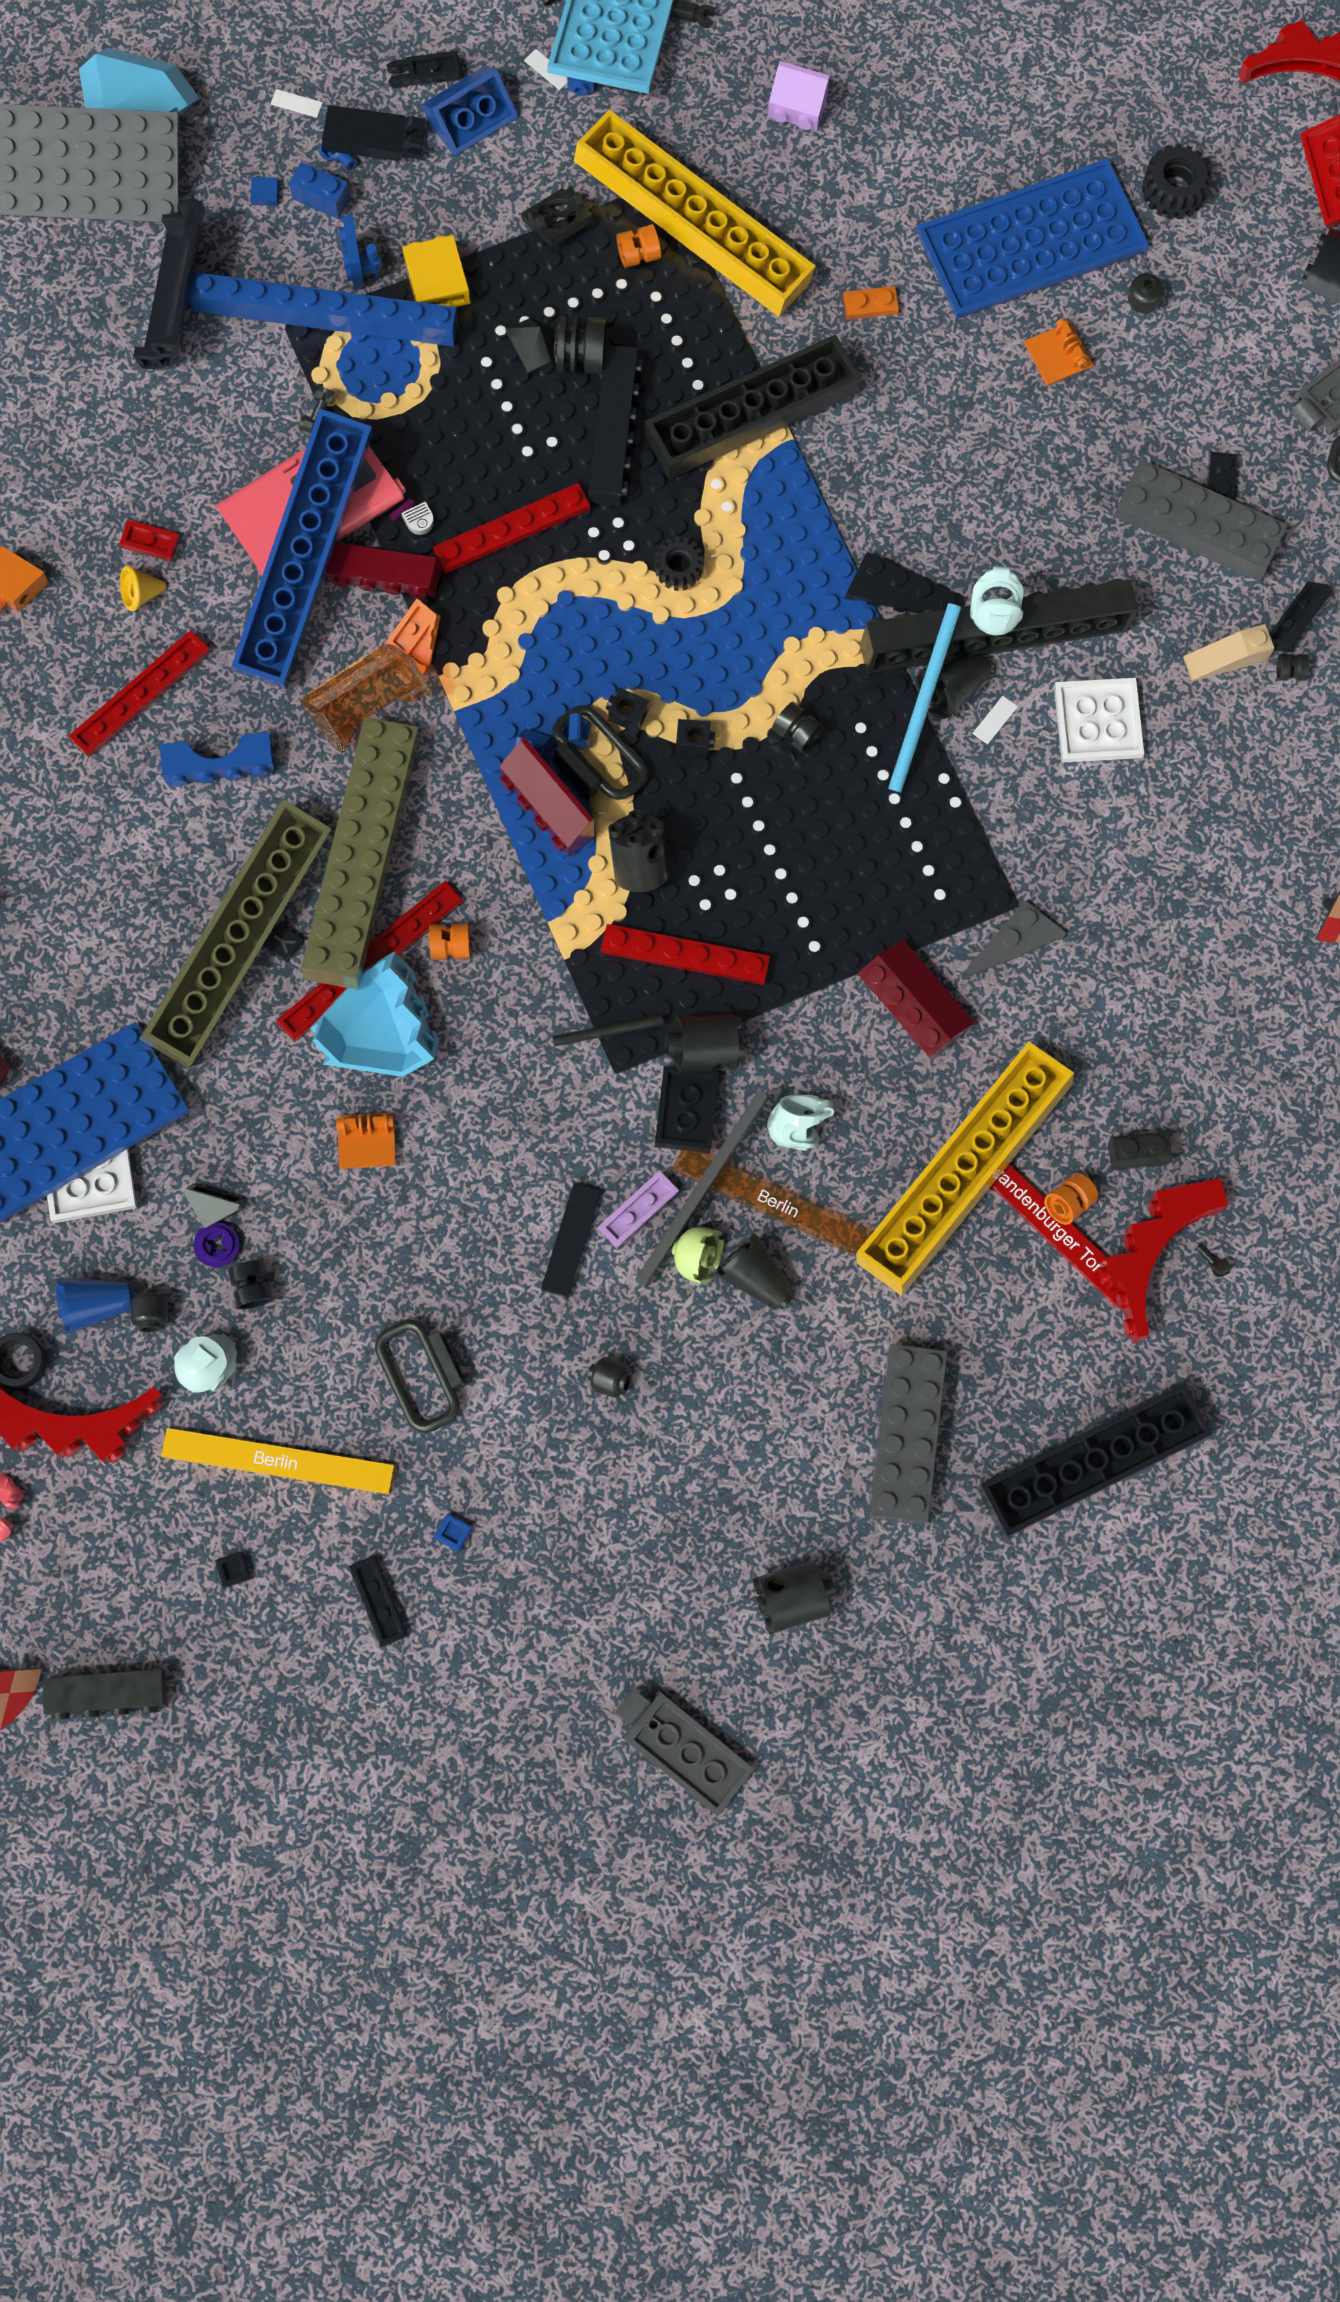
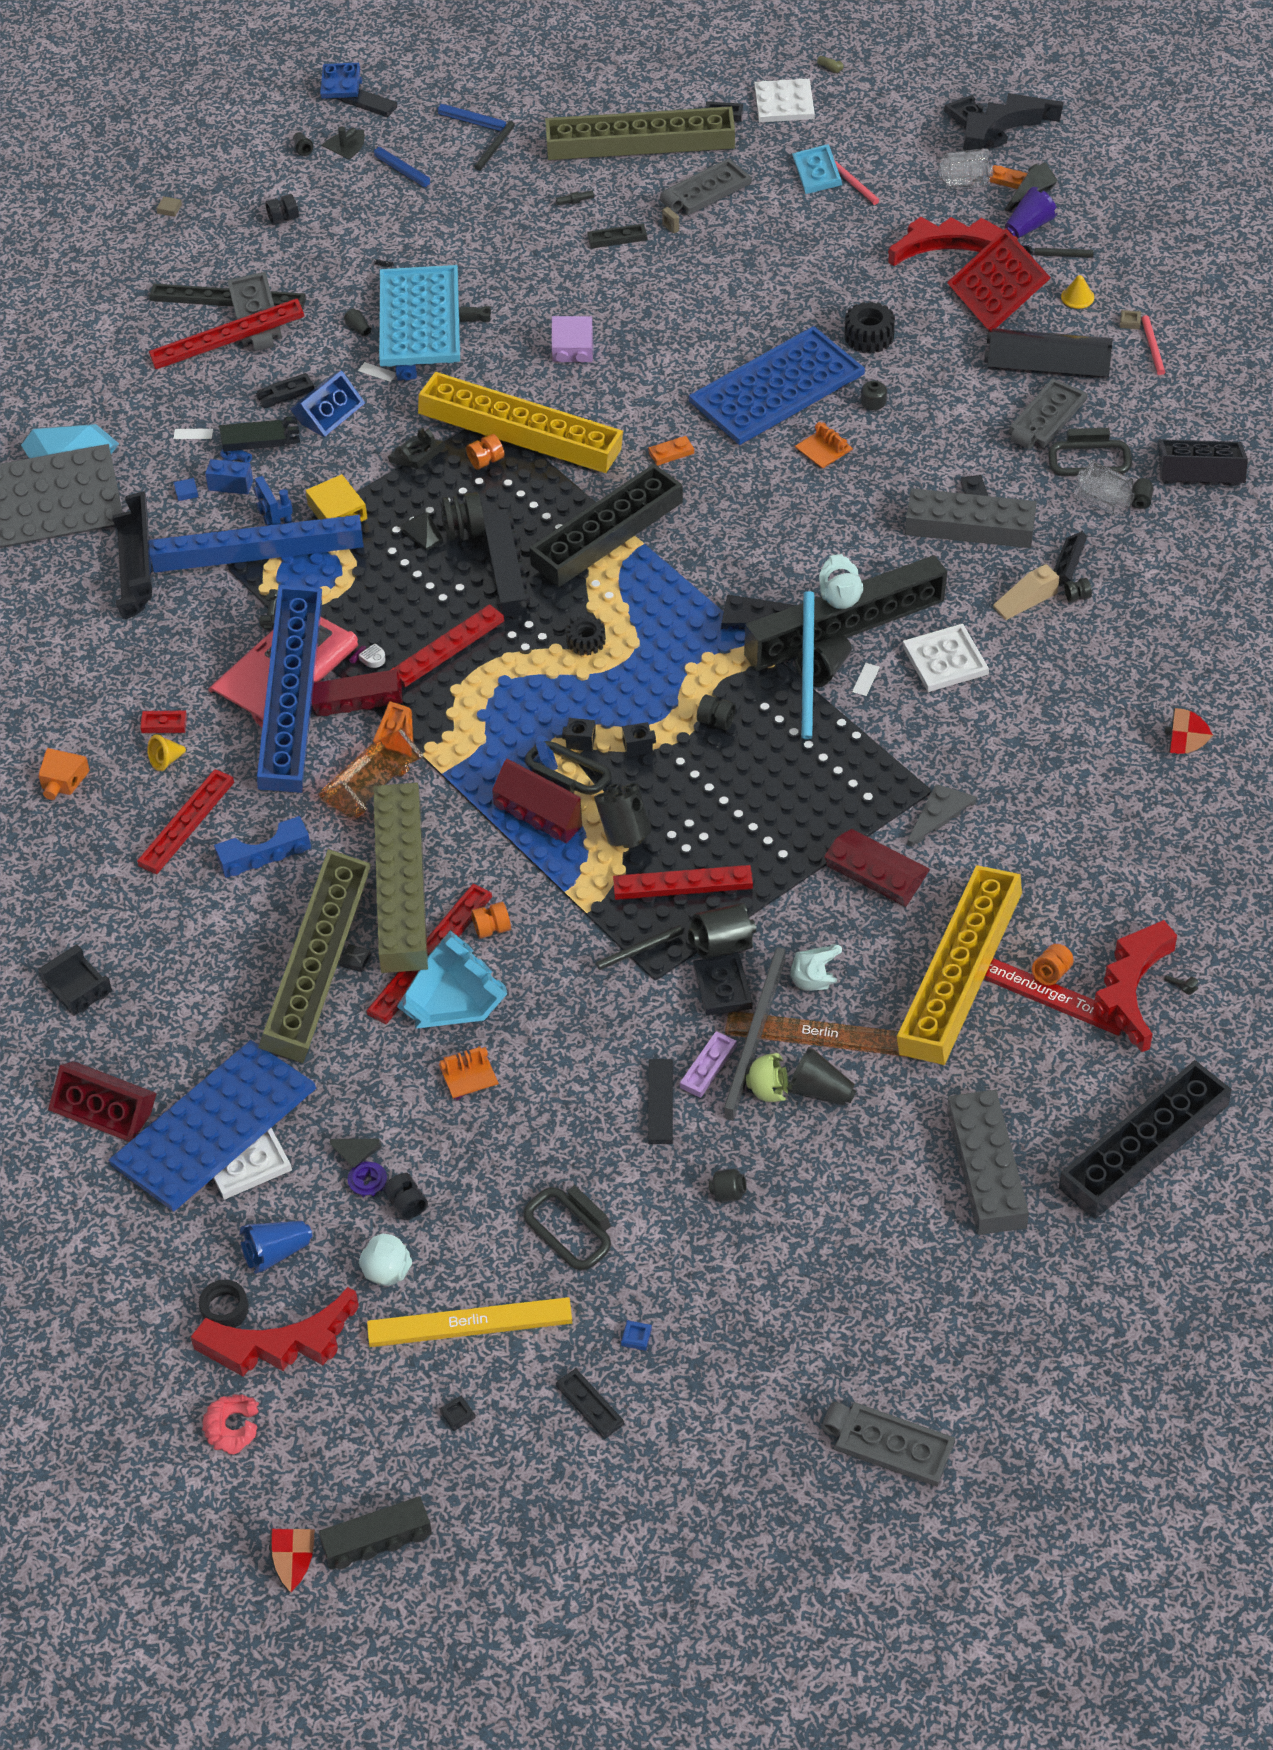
camera: 10 degrees left, 25 degrees down
(149, 1310) = (326, 1237): pearl dark grey head -> none
(794, 1596) = (939, 1297): pearl dark grey cylinder -> none
(1139, 1151) = (1093, 921): pearl dark grey brick -> none

